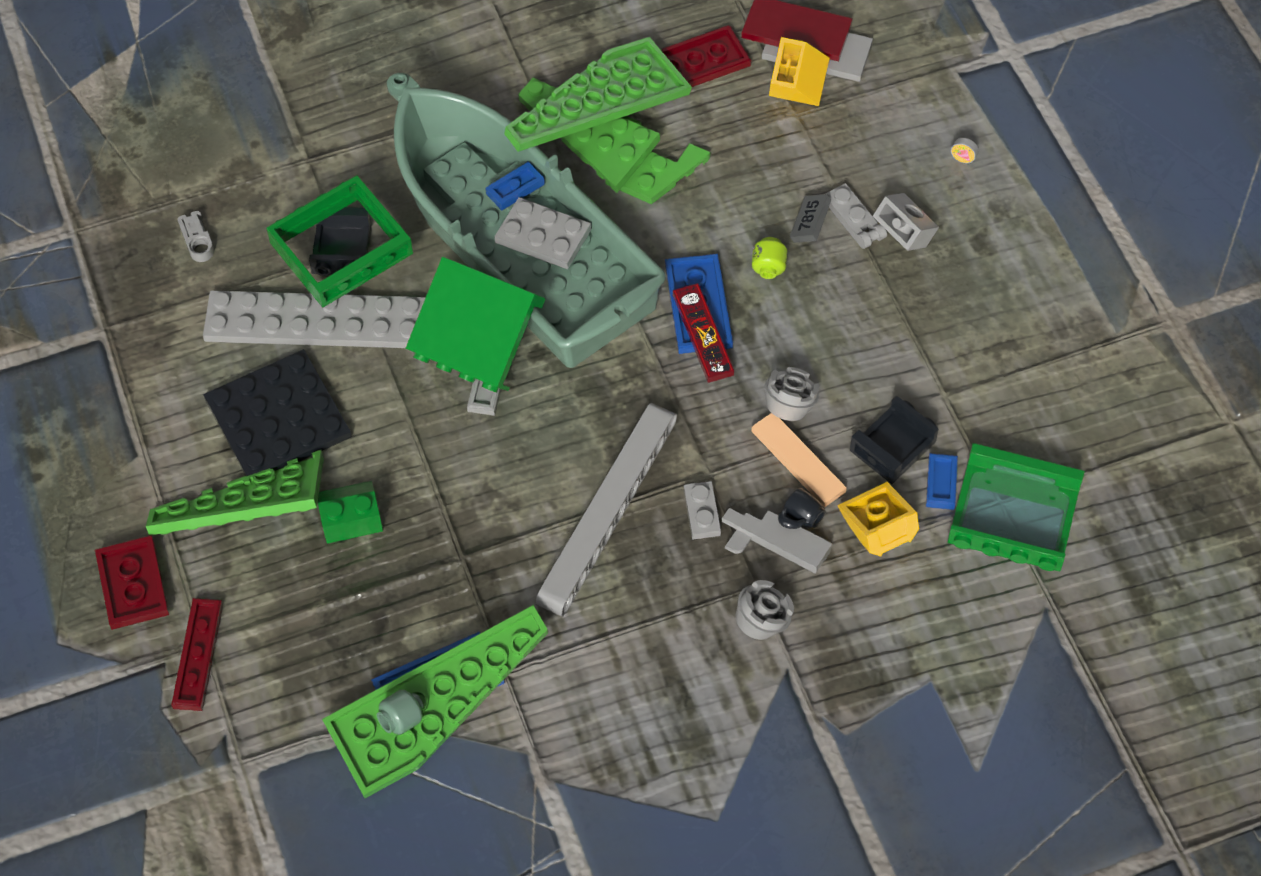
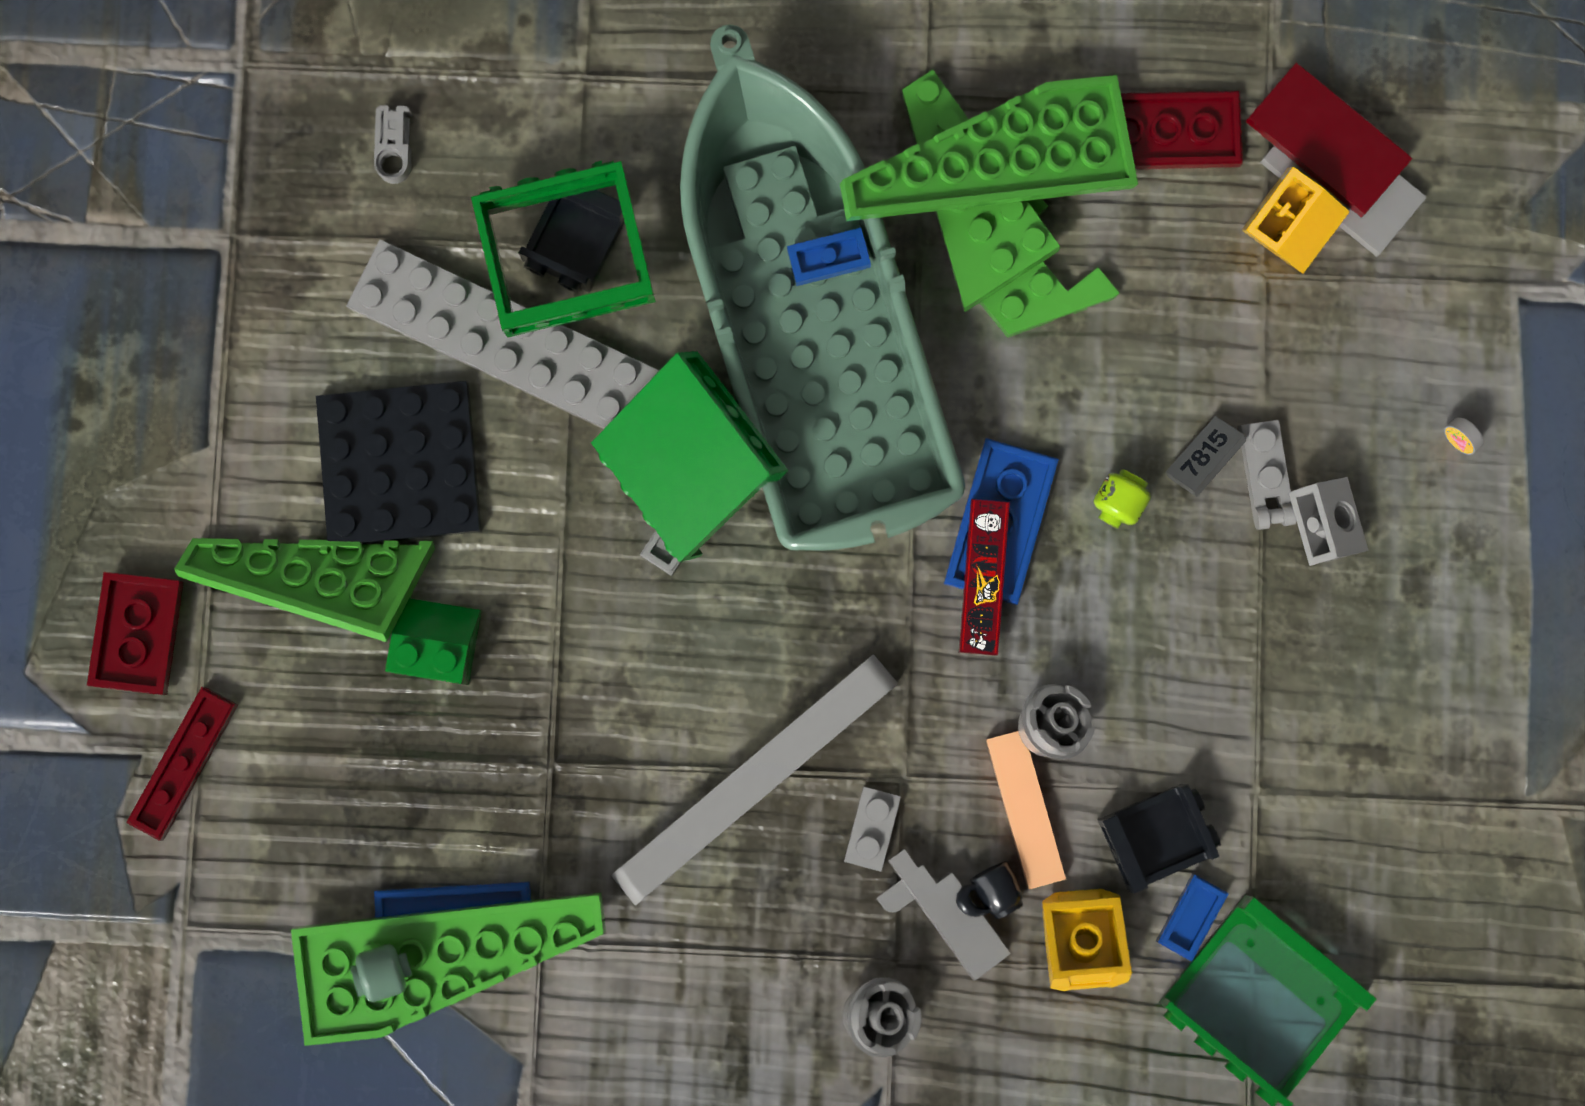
camera: 25 degrees right, 25 degrees up
(543, 233) = (836, 345): light grey plate -> none

